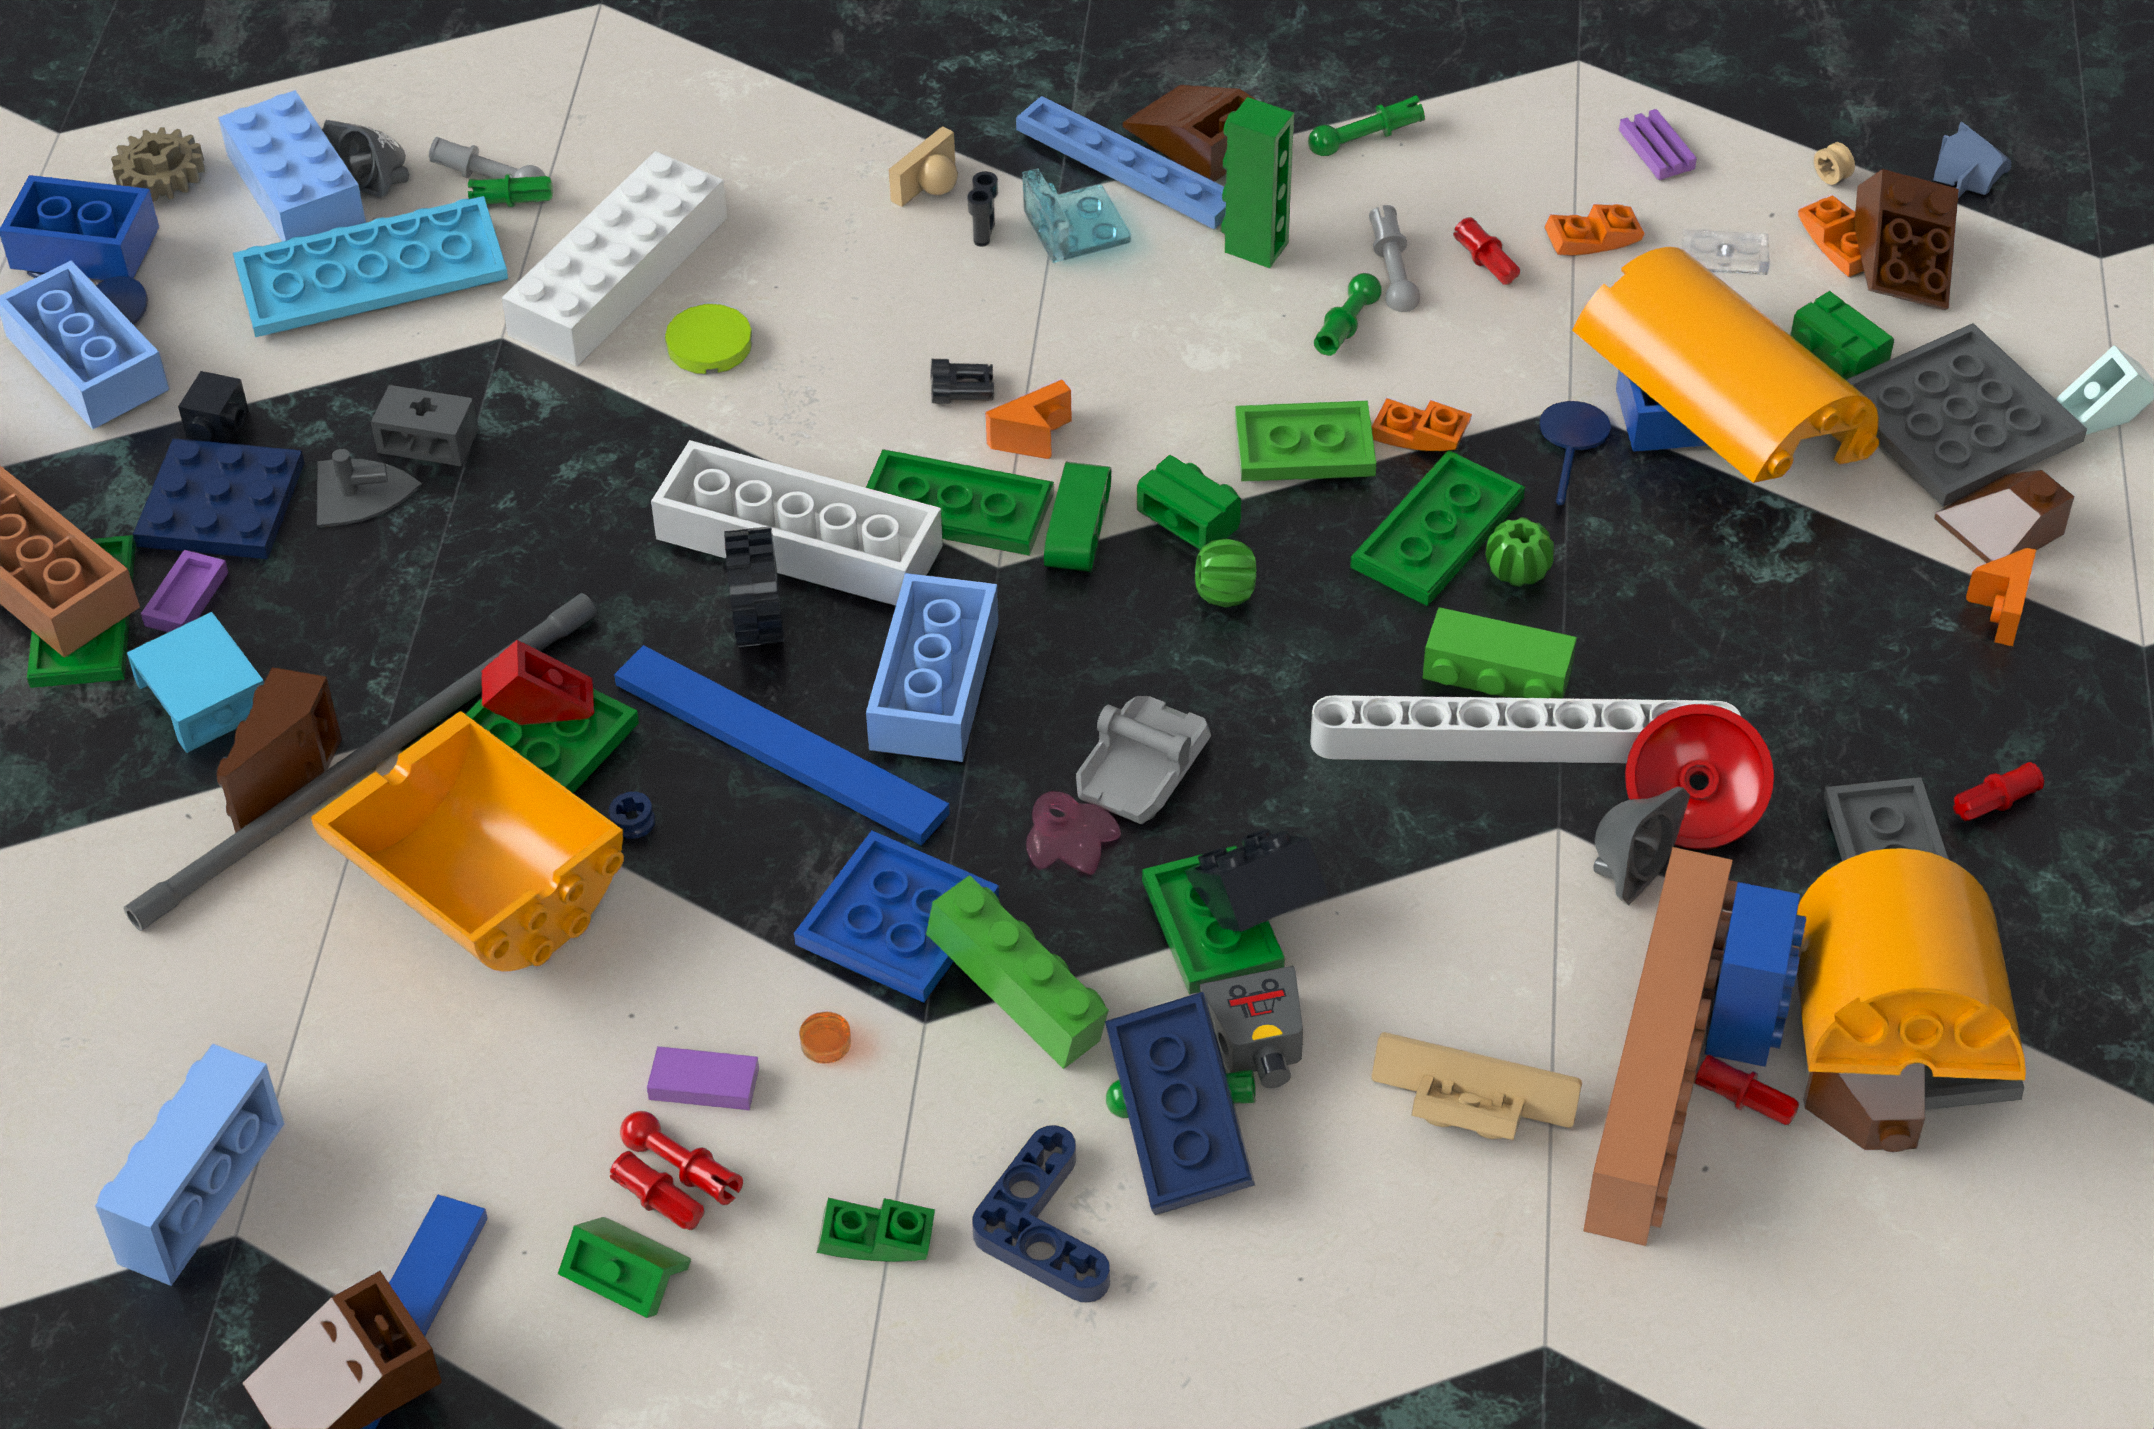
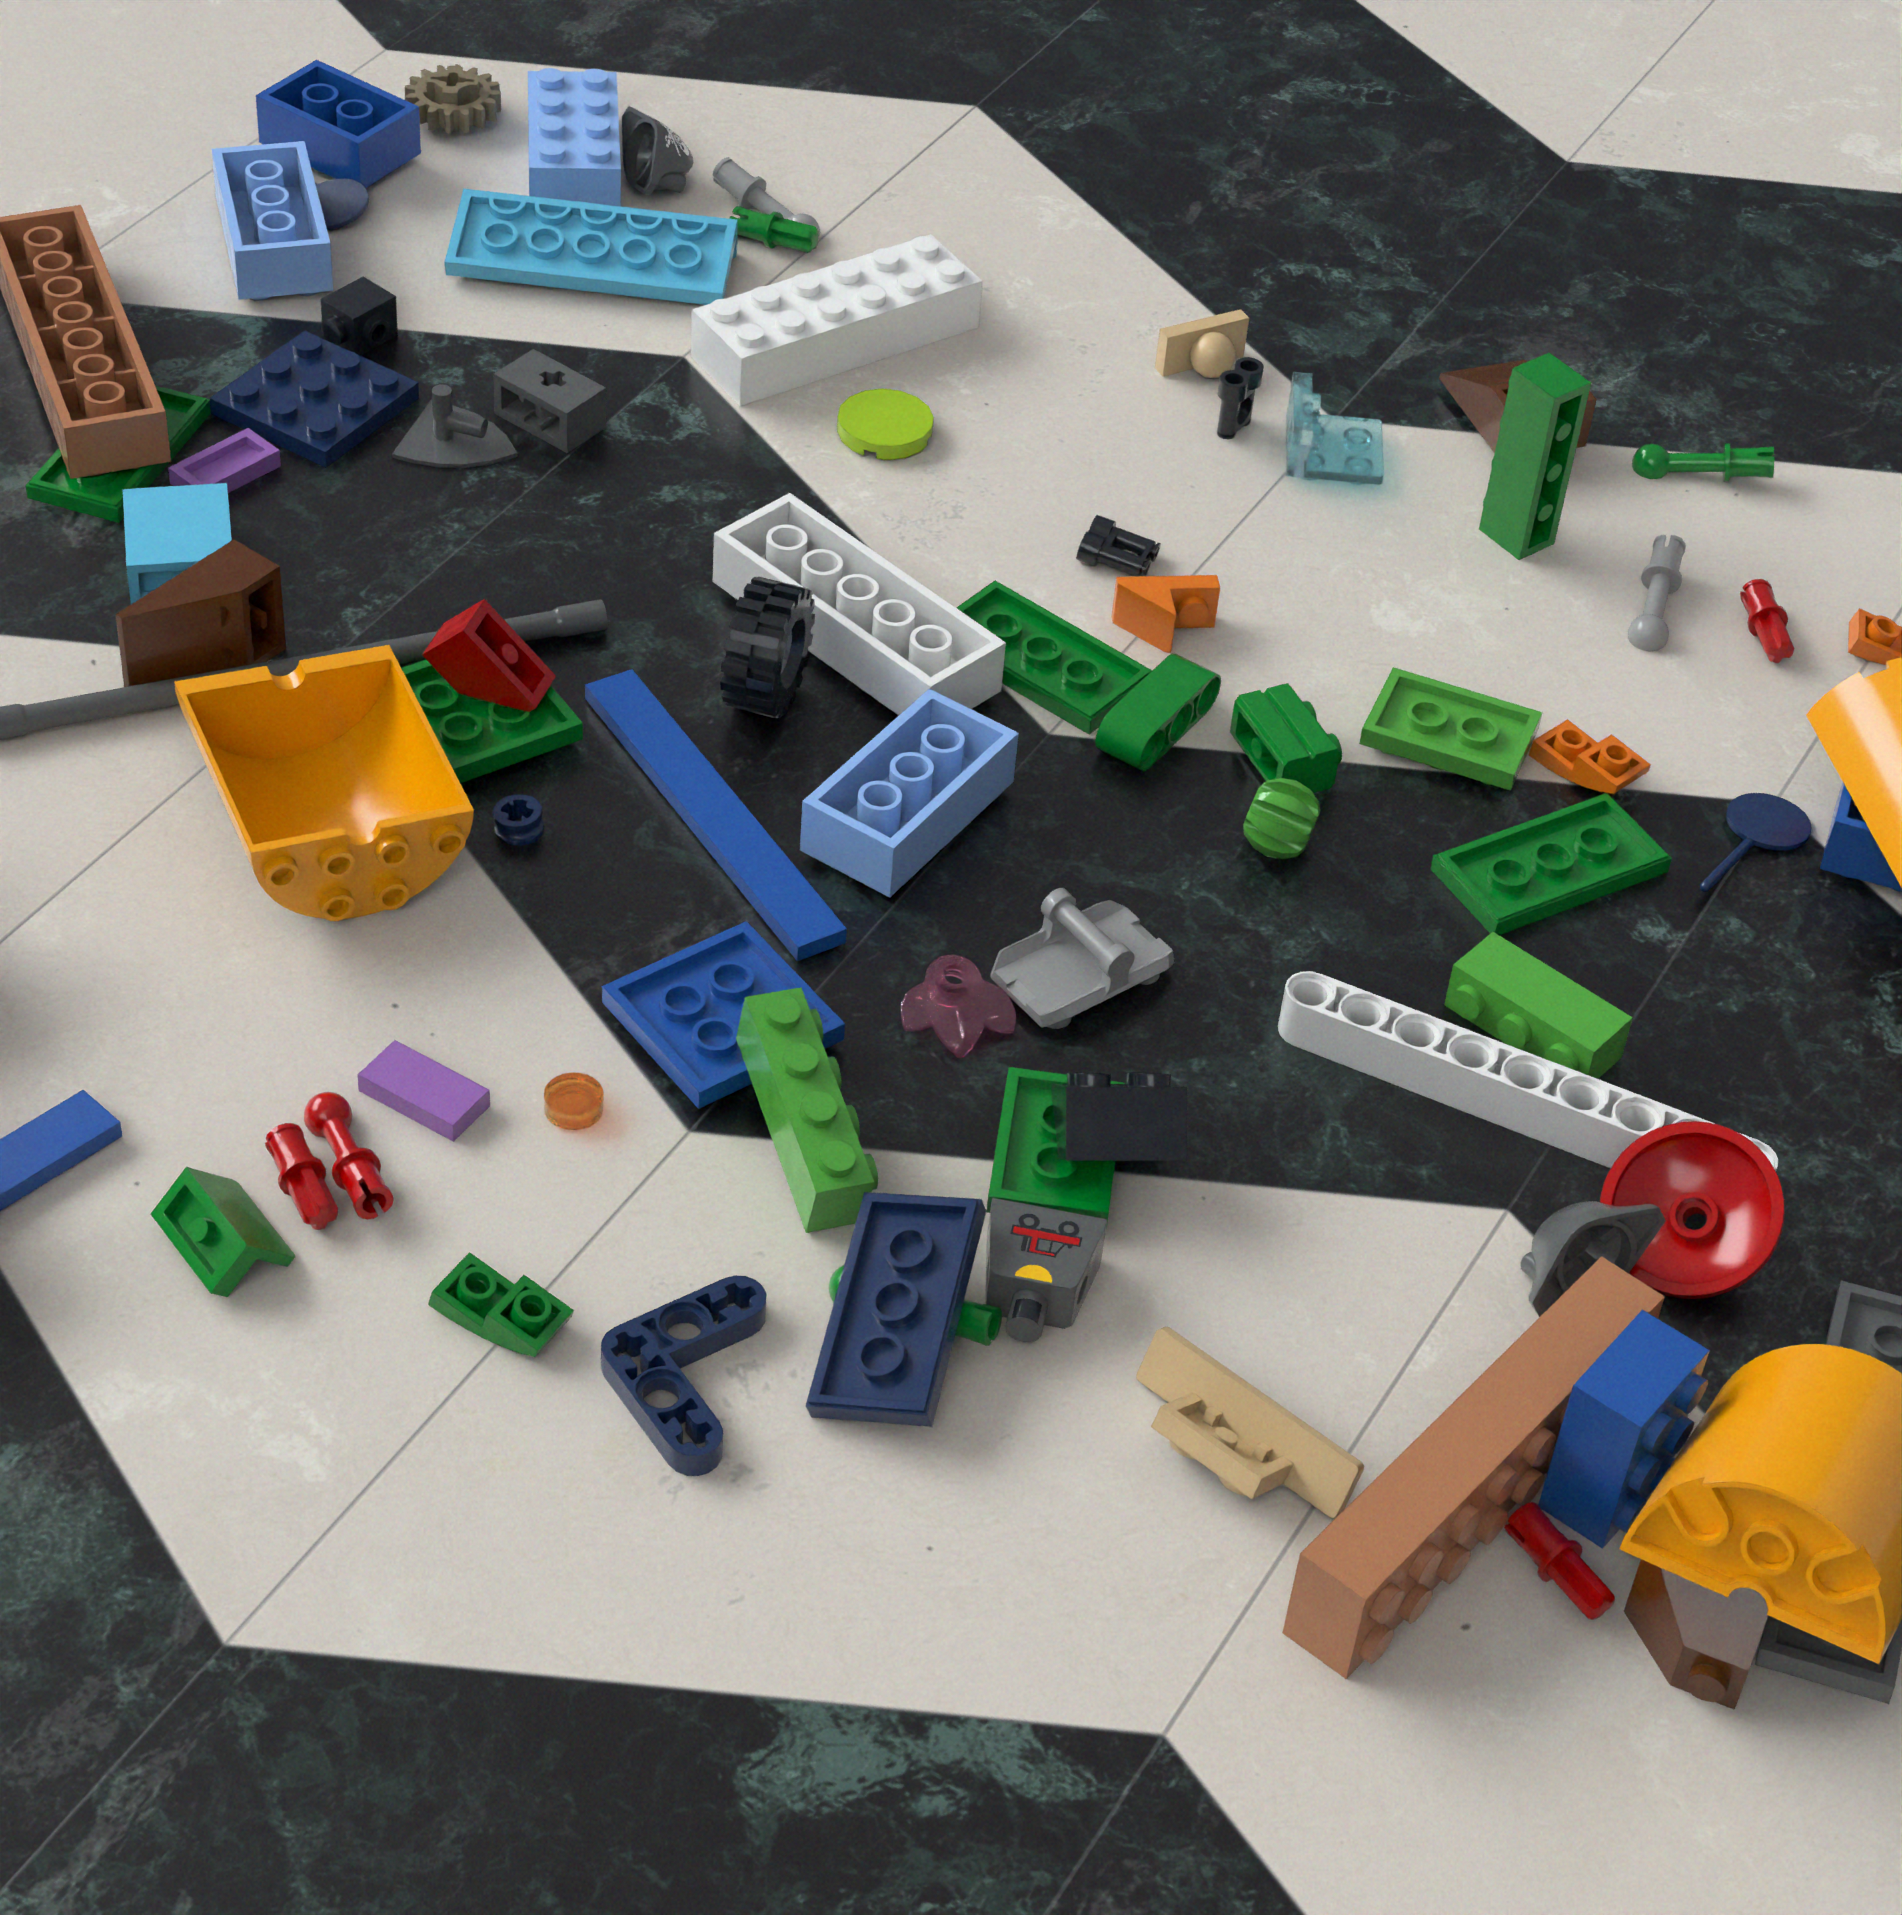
camera: 20 degrees right, 5 degrees down
(1124, 161) = (1415, 404): medium blue plate -> none
(1341, 322) = (1562, 632): green pin -> none
(1520, 552) = (1624, 916): bright green piece -> none

